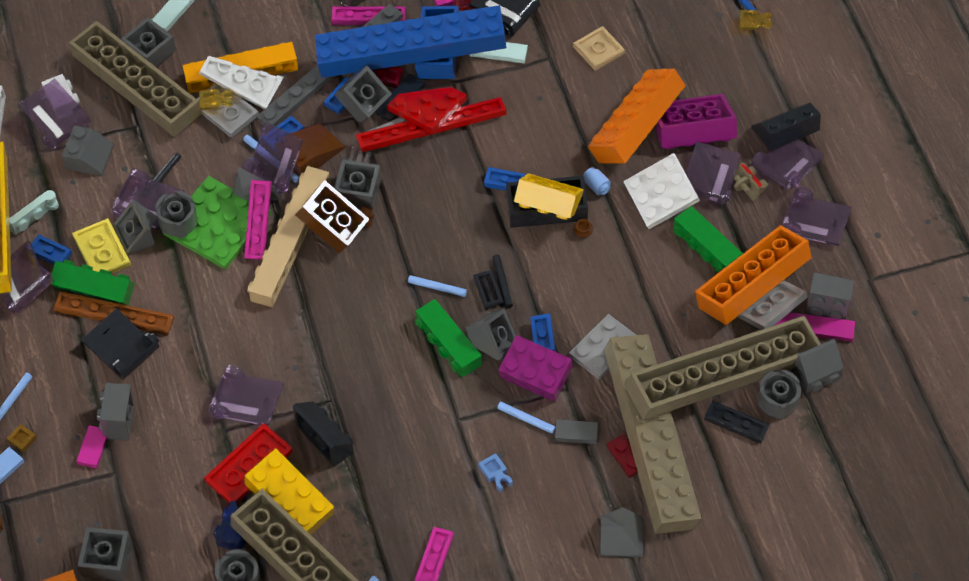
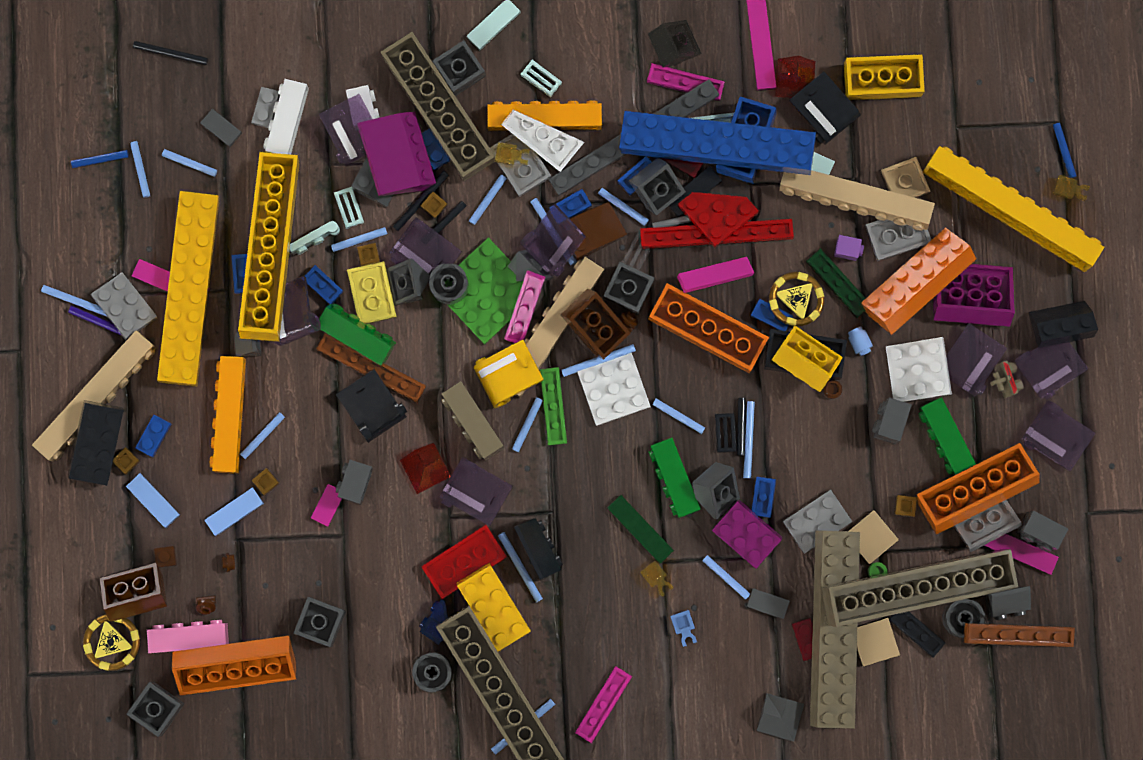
camera: 15 degrees right, 25 degrees up
(71, 193) = (354, 222): none -> light aqua tile
(79, 206) = (359, 239): none -> light blue bar
(91, 214) = (368, 254): none -> pearl gold plate
(102, 120) = (396, 154): none -> magenta slope
(134, 162) = (417, 204): none -> black bar
(136, 118) = (435, 152): none -> blue plate
(148, 160) = (434, 204): none -> pearl gold plate
(188, 388) = (425, 467): none -> clear red slope
(200, 147) = (488, 198): none -> light blue bar
(228, 43) = (553, 87): none -> light aqua tile
(228, 330) = (473, 421): none -> dark tan brick
(253, 281) = (506, 374): none -> yellow door
(285, 327) = (527, 424): none -> light blue bar
(308, 306) = (553, 406): none -> bright green tile
(309, 458) = (520, 567): none -> light blue bar
(334, 124) = (624, 207): none -> light blue bar
(343, 254) = (595, 361): none -> light blue bar
(365, 277) = (613, 389): none -> white plate
(425, 394) = (640, 529): none -> dark green tile
(439, 154) = (715, 274): none -> dark pink tile
(445, 200) = (708, 328): none -> orange brick
(453, 431) = (655, 576): none -> clear yellow plate
(513, 291) = (749, 439): none -> light blue bar
(523, 157) = (796, 299): none -> piece
(556, 64) = (859, 198): none -> tan brick
(560, 141) = (837, 282): none -> dark green tile
(561, 109) = (848, 248): none -> medium lavender brick
(604, 88) = (893, 239): none -> light grey plate
(648, 236) = (891, 420): none -> dark grey brick
(667, 344) = (874, 537): none -> tan tile
(687, 311) = (905, 505): none -> pearl gold plate
(699, 441) = (876, 642): none -> tan tile
(706, 42) = (1013, 209): none -> yellow brick
(840, 393) = (1019, 635): none -> dark orange tile

